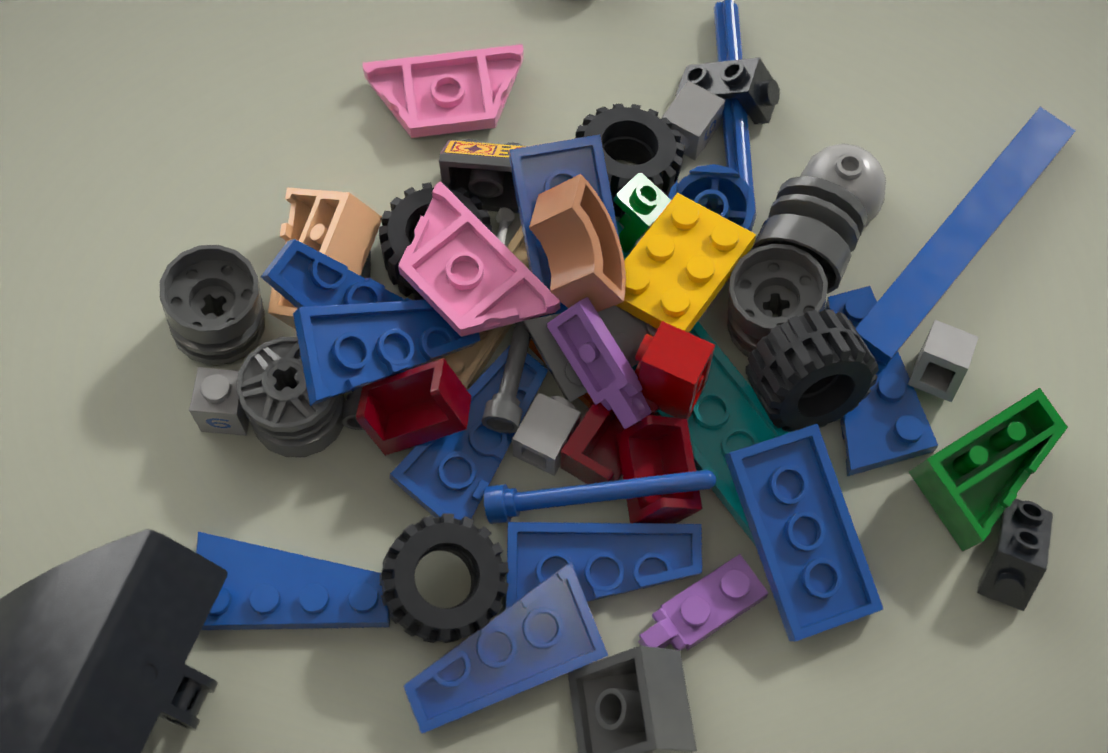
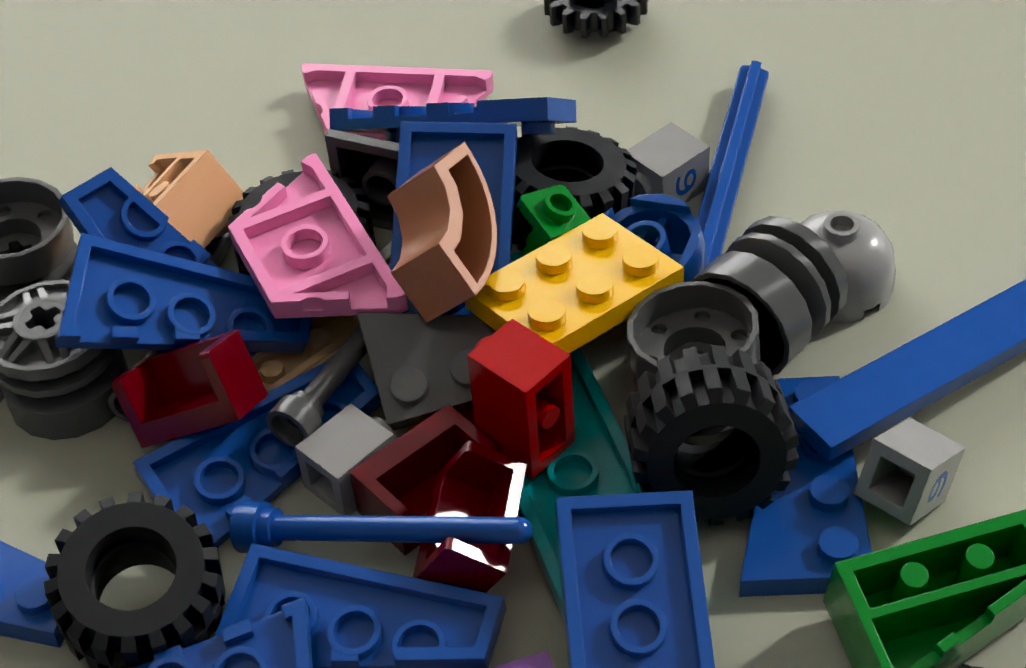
camera: 20 degrees right, 20 degrees down
(531, 118) = (534, 115): none -> blue wing
(599, 362) = (429, 369): medium lavender hinge -> none
(739, 79) = (751, 142): black bracket -> none

